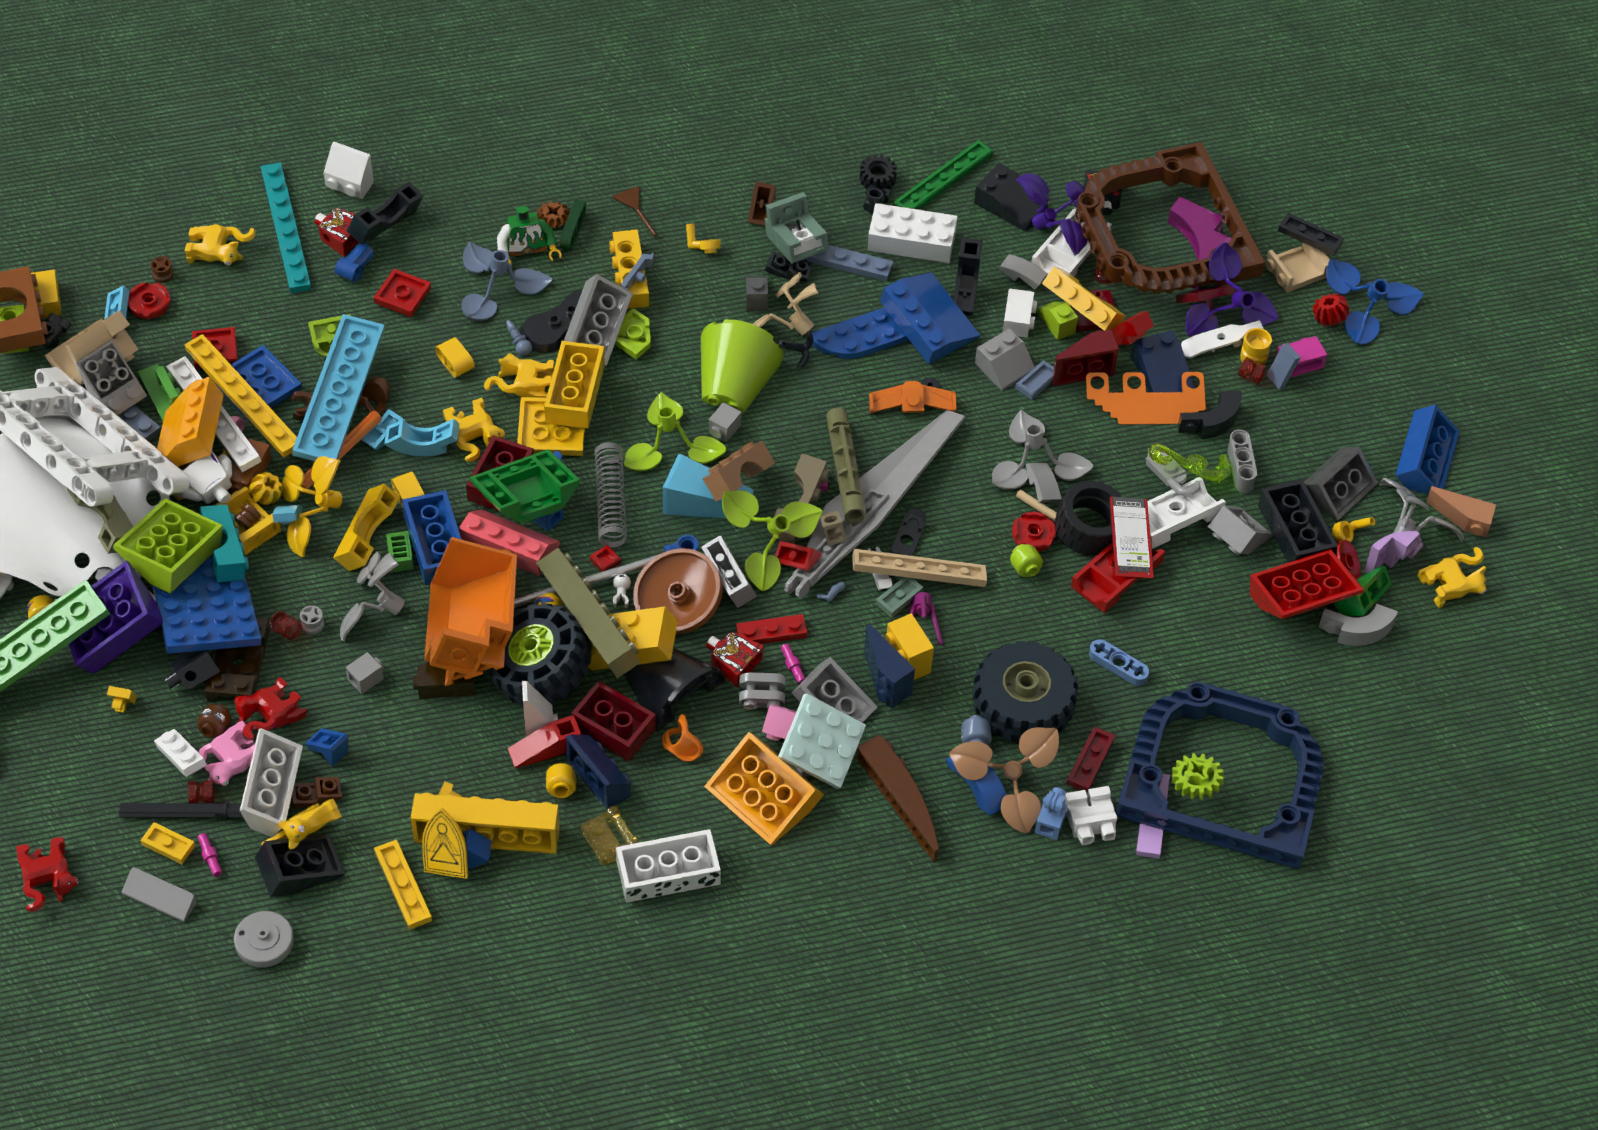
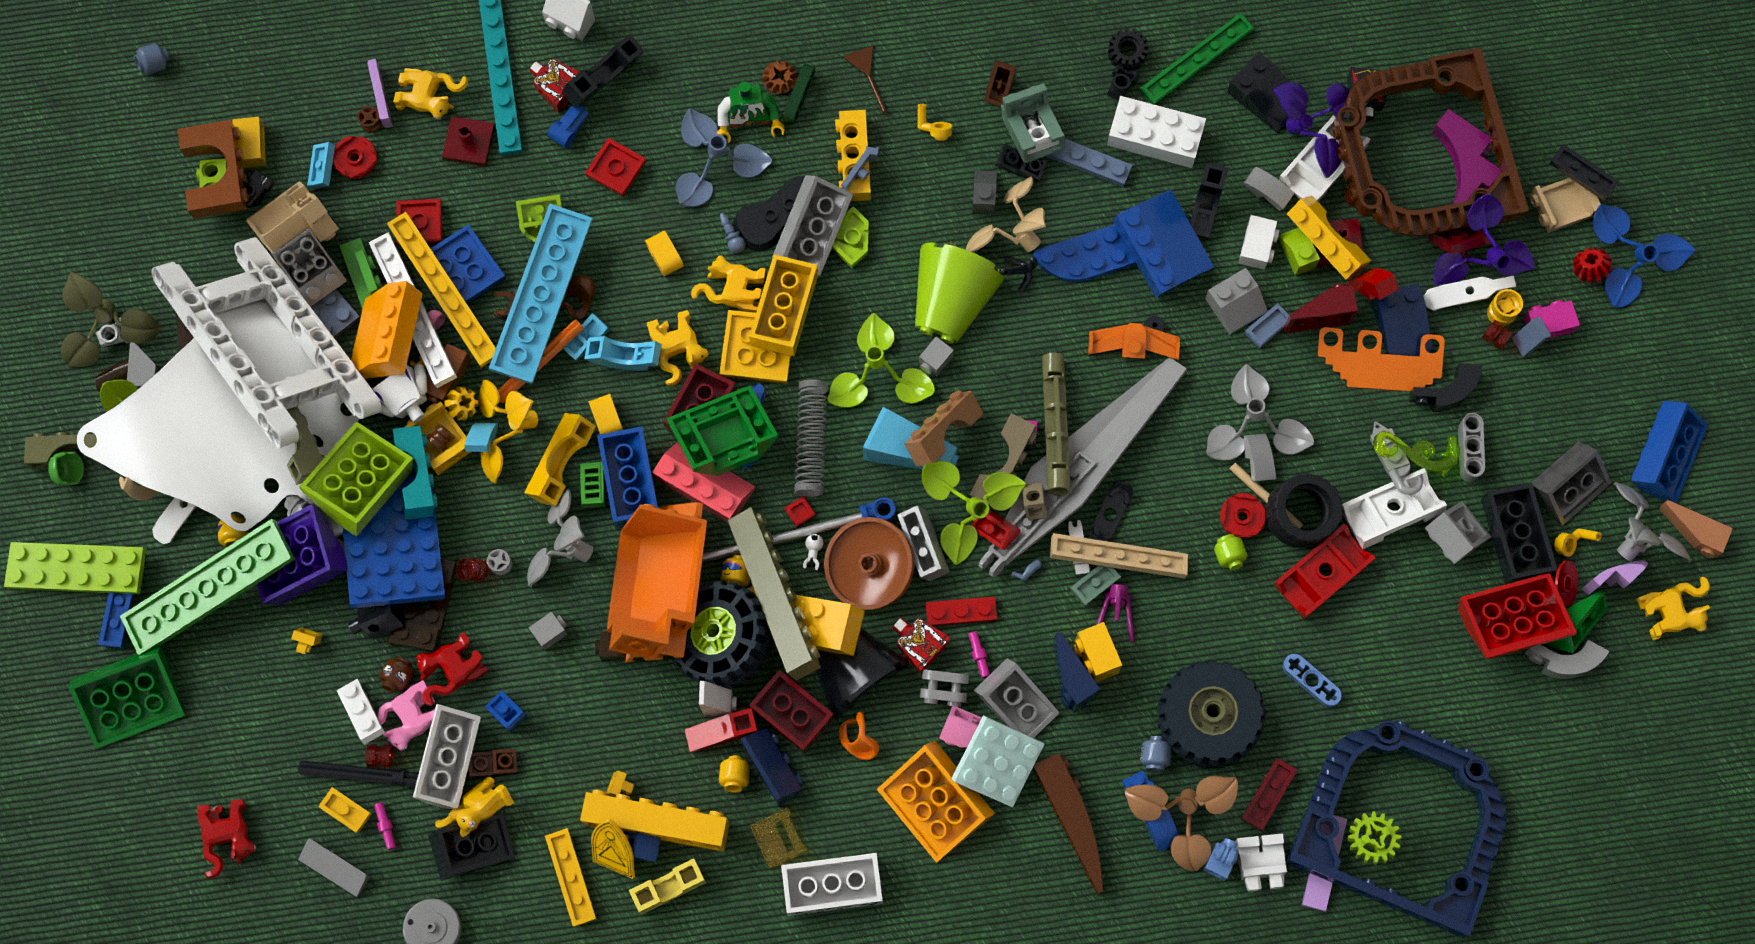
camera: 10 degrees right, 20 degrees up
(170, 248) = (379, 92): none -> lavender tile
(258, 282) = (468, 141): none -> dark red tile
(488, 890) = (664, 889): none -> light yellow arch
(1131, 537) = (1342, 542): sticker -> none

